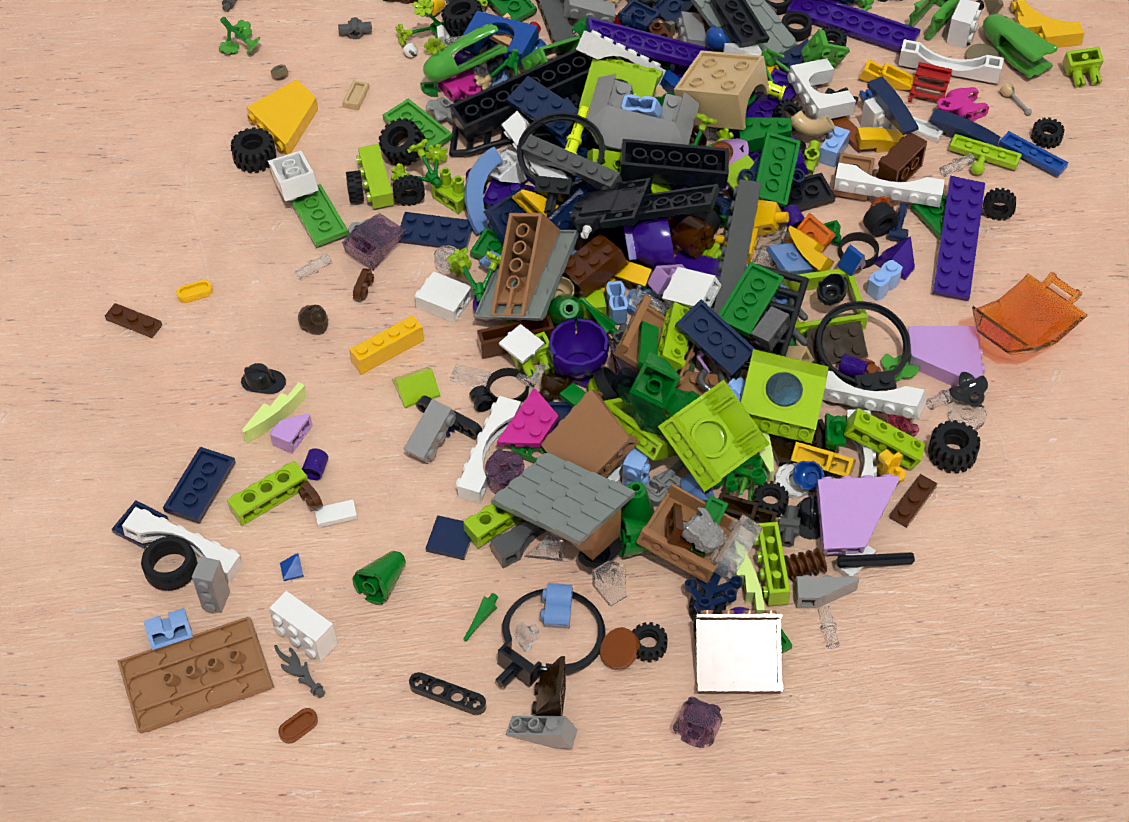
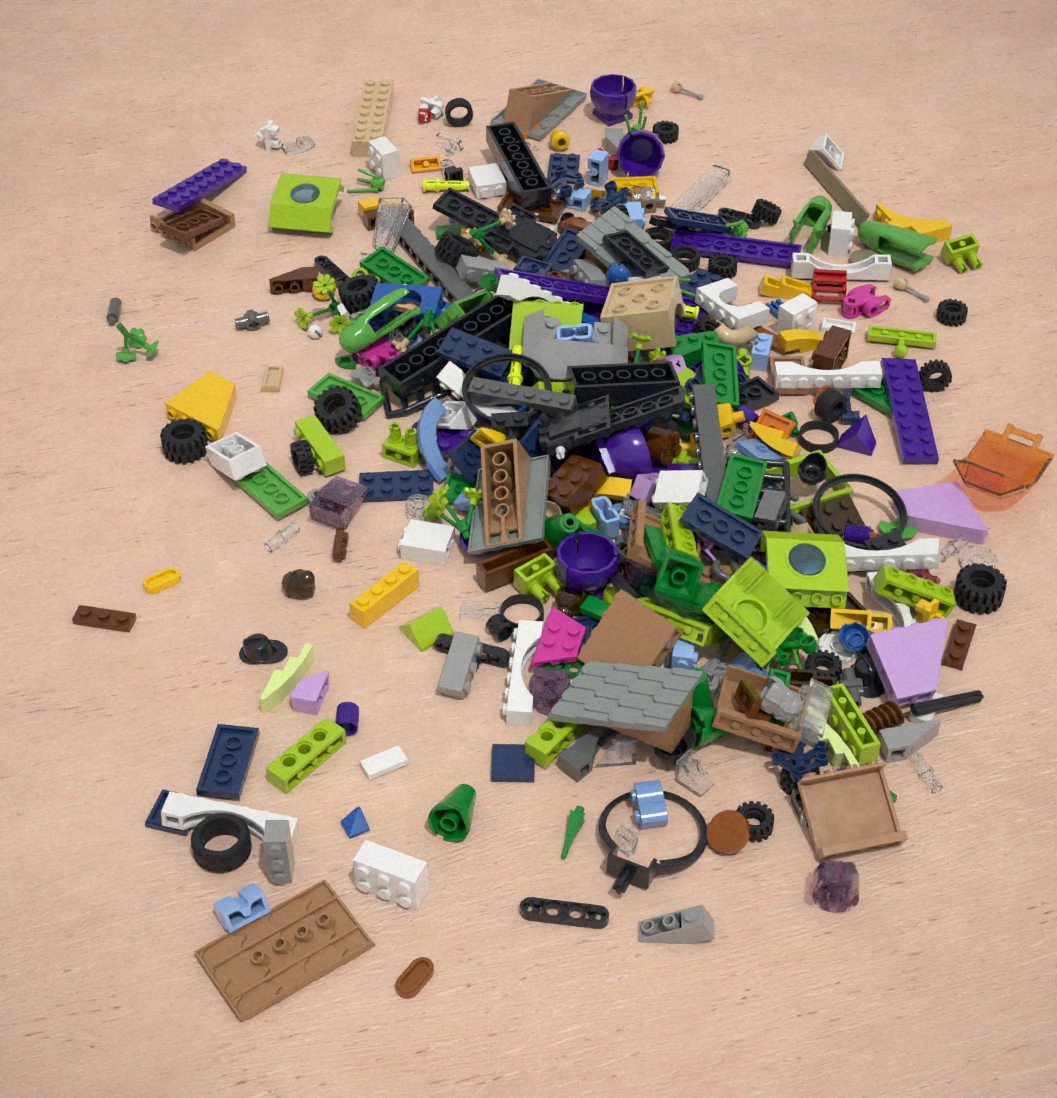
camera: 15 degrees left, 10 degrees down
(279, 71) = (186, 369): dark tan tile -> none
(296, 670) = (391, 921): dark grey piece -> none
(310, 495) = (353, 748): reddish brown plate -> none
(408, 183) = (355, 444): black tyre -> none
(435, 156) = (372, 417): lime plant -> none
(521, 343) = (526, 567): white piece -> none
(531, 382) = (547, 601): clear tile -> none
(551, 690) = (677, 882): dark brown slope -> none
(819, 48) = (720, 269): bright green bracket -> none
(834, 431) = (864, 592): green hips -> none
(852, 260) = (821, 441): blue slope -> none
(884, 280) = (854, 456): light blue brick -> none
(893, 105) = (812, 307): dark blue slope -> none
(955, 124) = (864, 317): dark blue slope -> none
(957, 164) = (881, 350): clear pin -> none
(967, 387) = (972, 533): black plate -> none
(1033, 153) = (947, 331): blue plate -> none

